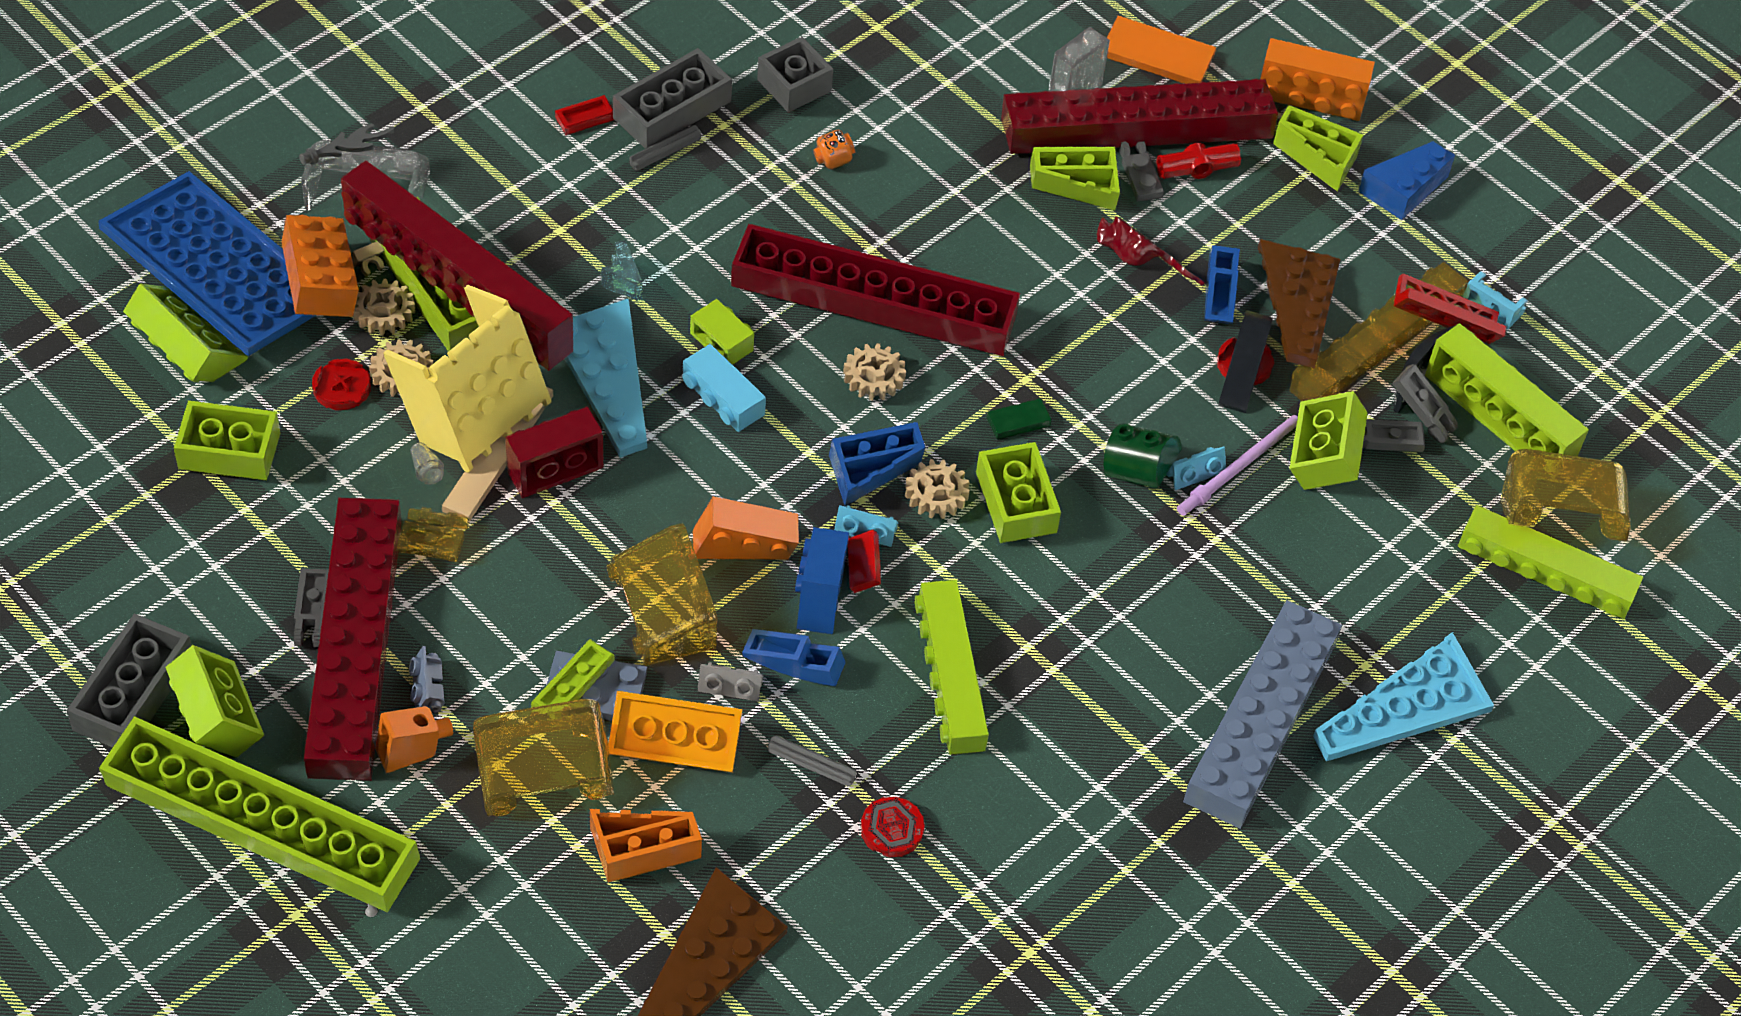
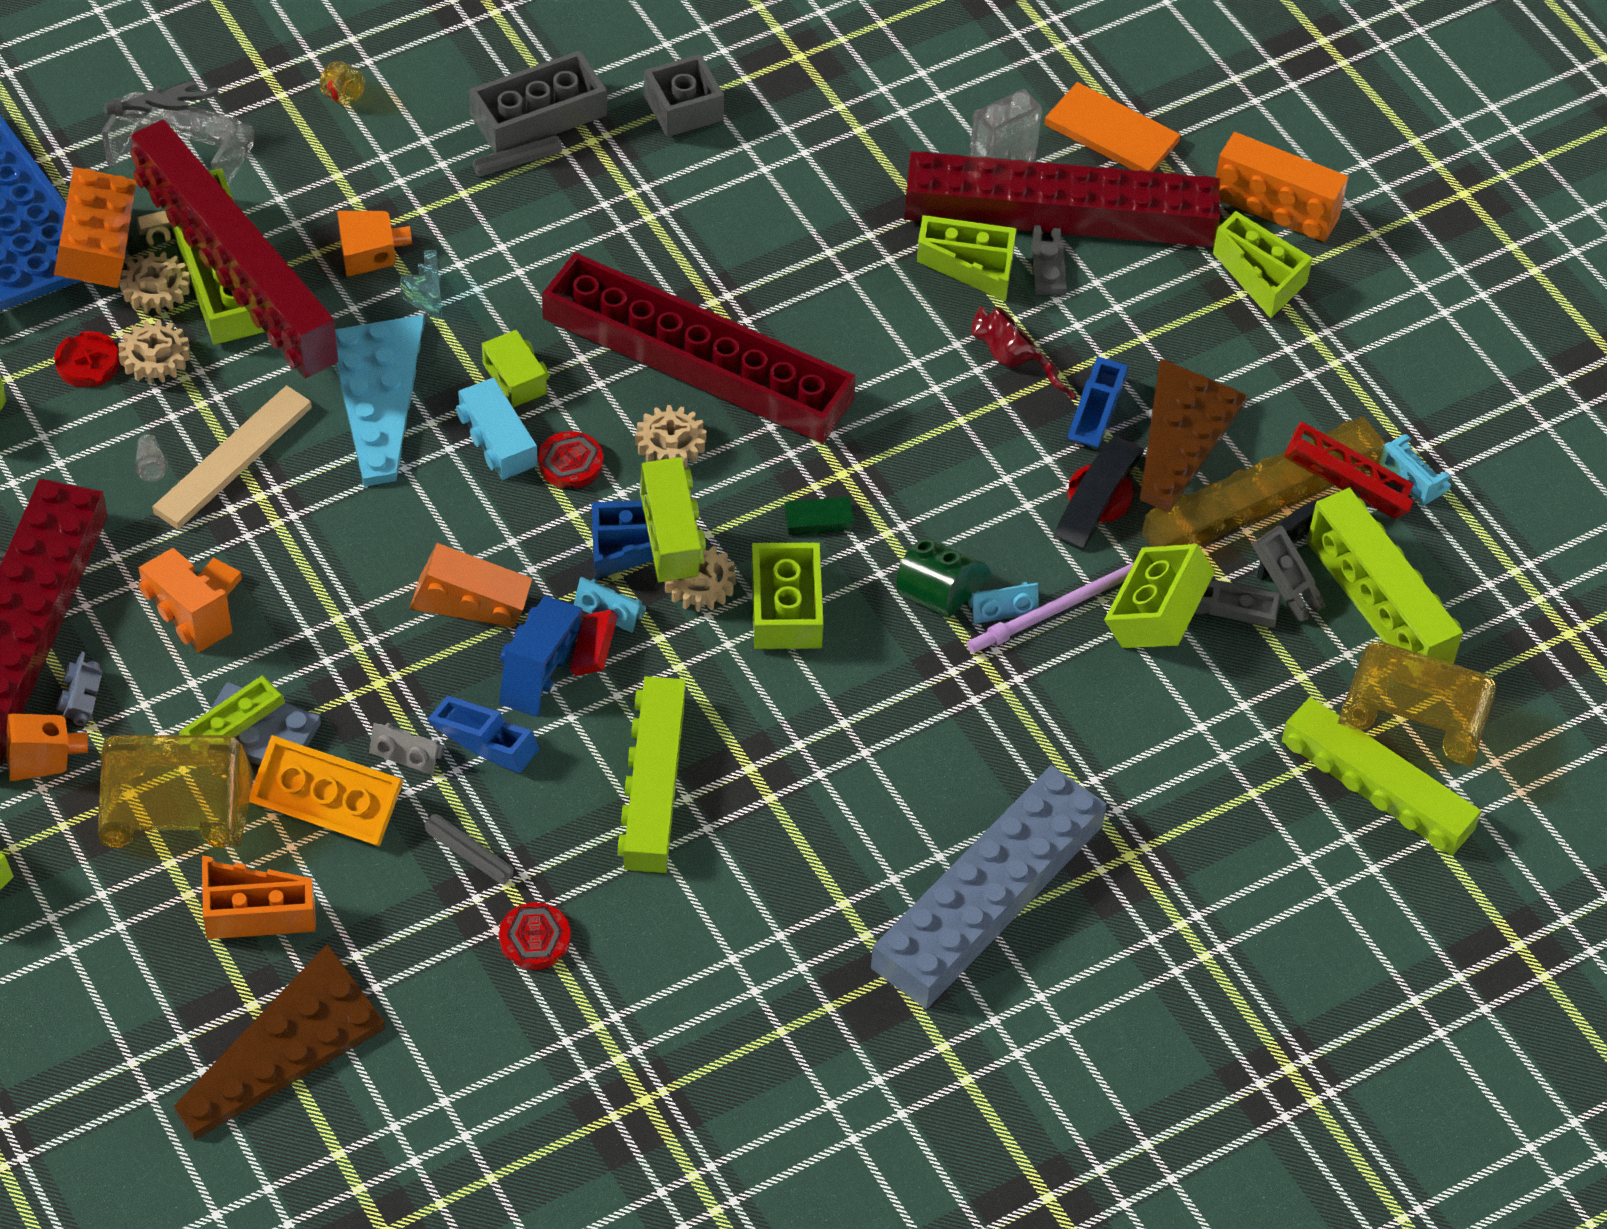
camera: 15 degrees right, 0 degrees up
(431, 540) = (132, 542): clear yellow plate -> none
(479, 390) = (216, 382): light yellow windscreen -> none
(495, 106) = (342, 83): none -> clear yellow head
(499, 583) = (186, 600): none -> orange wedge
(518, 561) = (221, 575): none -> orange tile
(554, 452) = (287, 467): dark red brick -> none
(560, 240) = (369, 240): none -> orange torso
(584, 115) = (439, 107): red tile -> none
(666, 596) = (358, 644): clear yellow windscreen -> none
(793, 405) = (570, 459): none -> red tile
(834, 149) = (703, 185): orange head -> none
(910, 442) = (671, 519): none -> lime brick
(1198, 160) = (1116, 259): red piece -> none
(1407, 178) = (1355, 315): blue wedge -> none
(1415, 699) = (1170, 903): medium azure wing -> none

